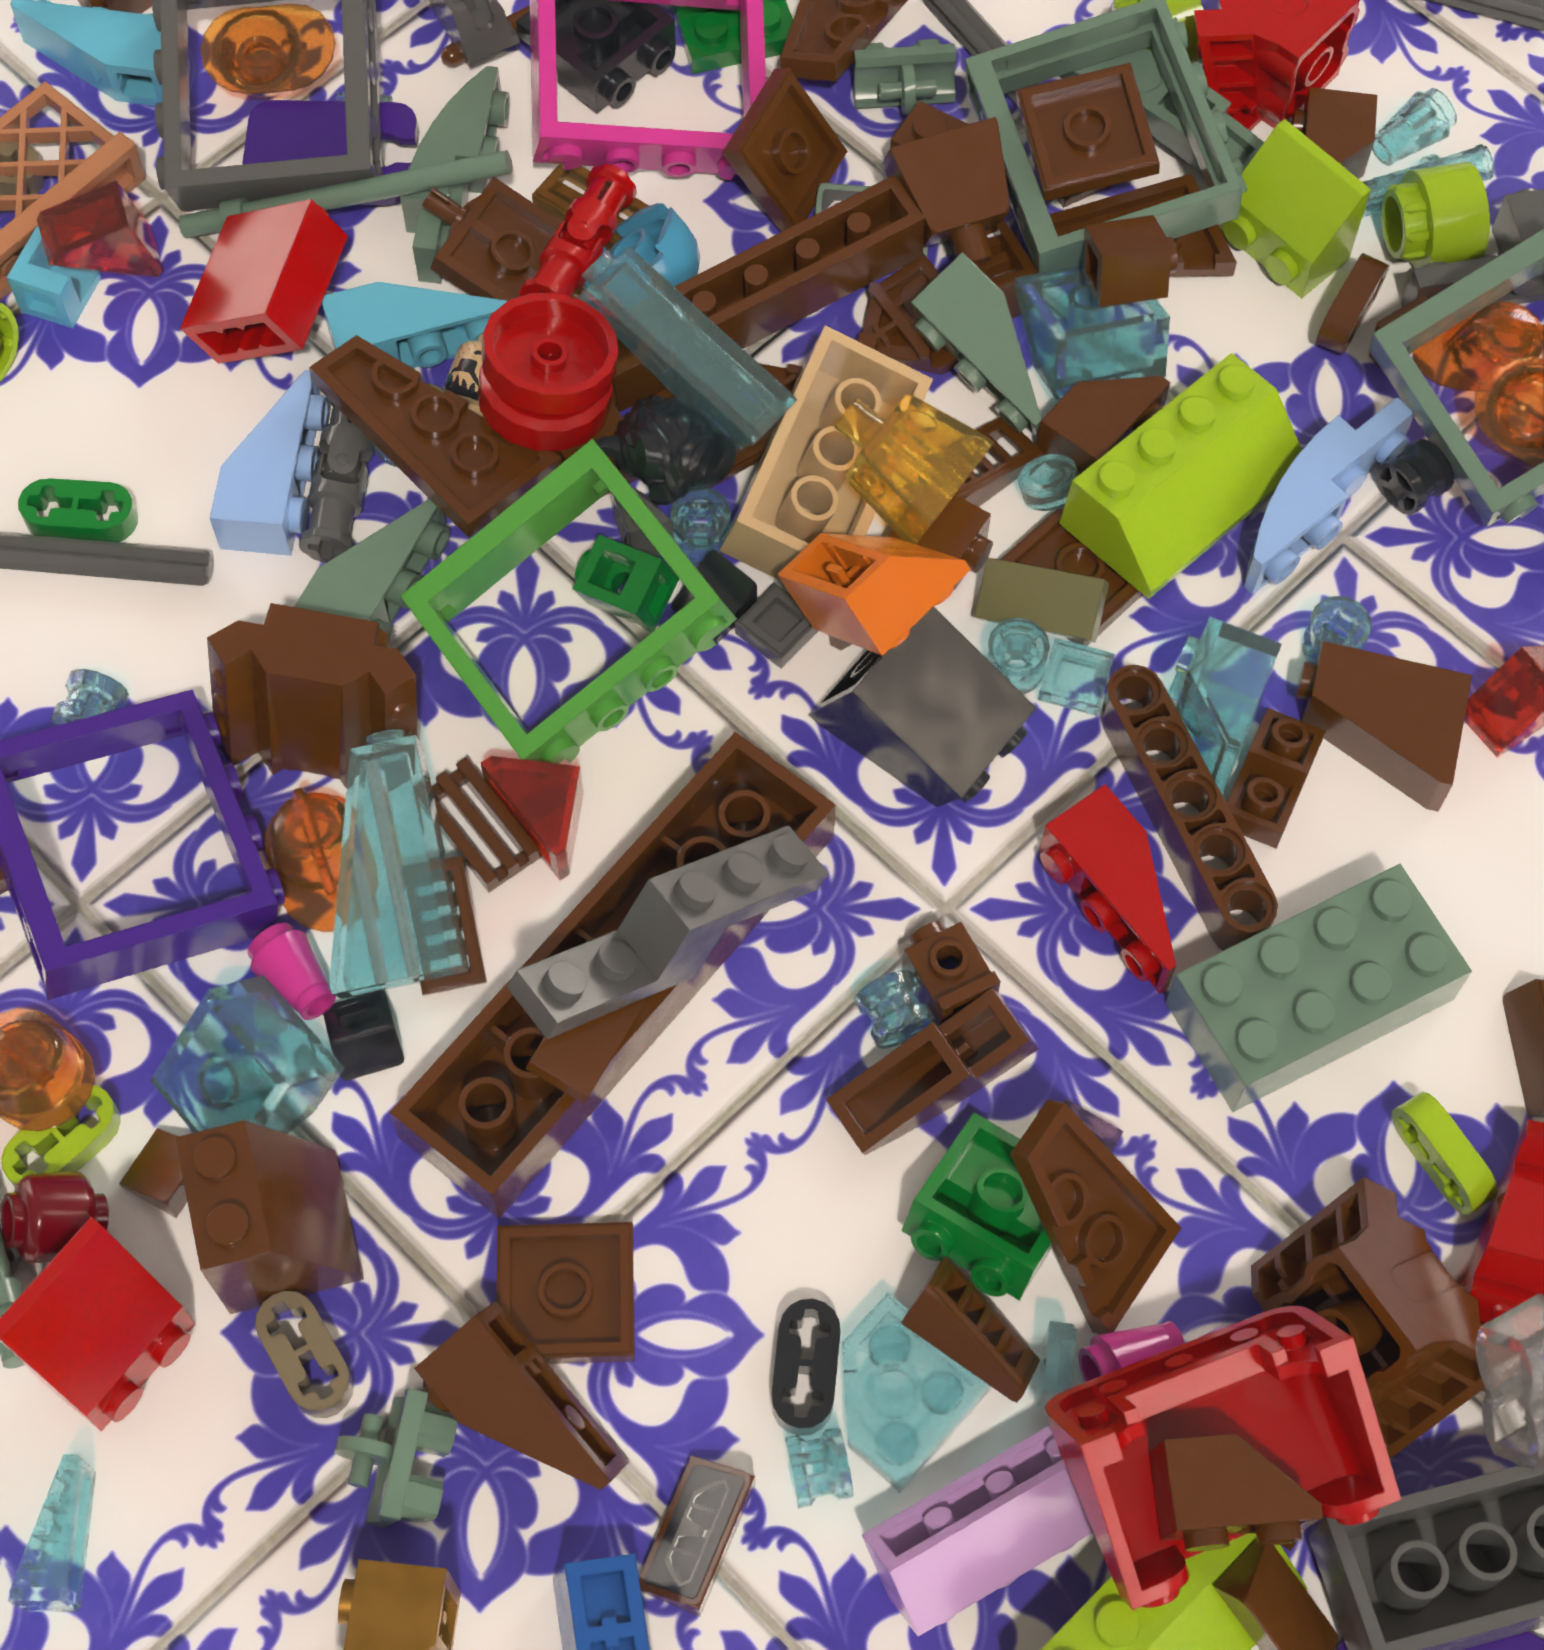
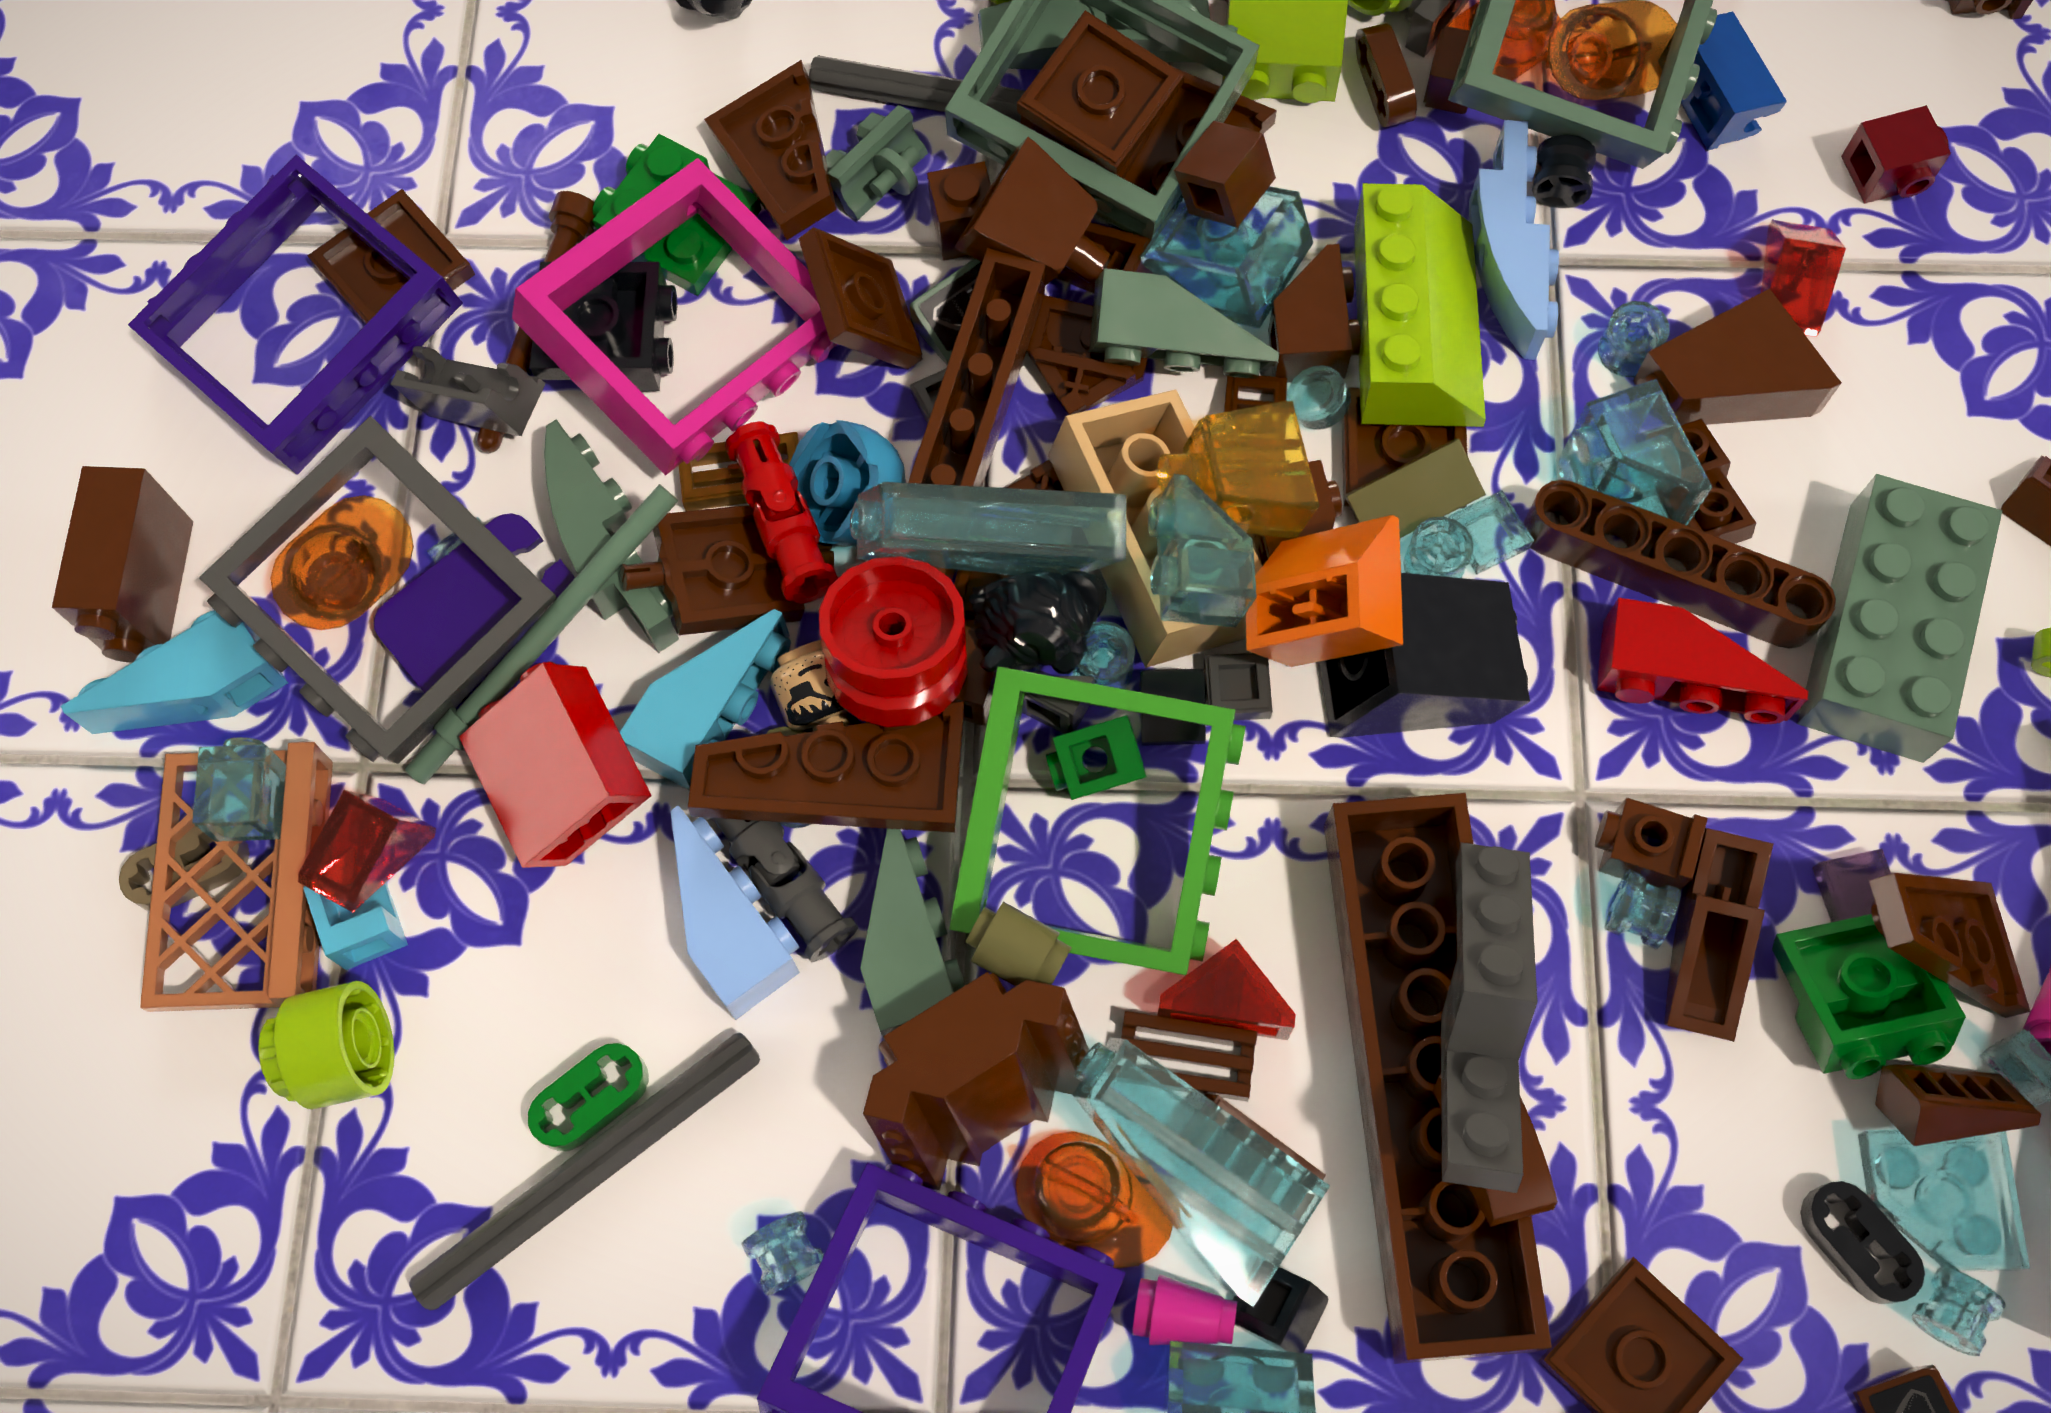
camera: 40 degrees left, 5 degrees up
(57, 132) = (239, 791): none -> clear light blue brick
(423, 635) = (1016, 946): none -> olive brick
(807, 488) = (1202, 558): none -> clear light blue slope

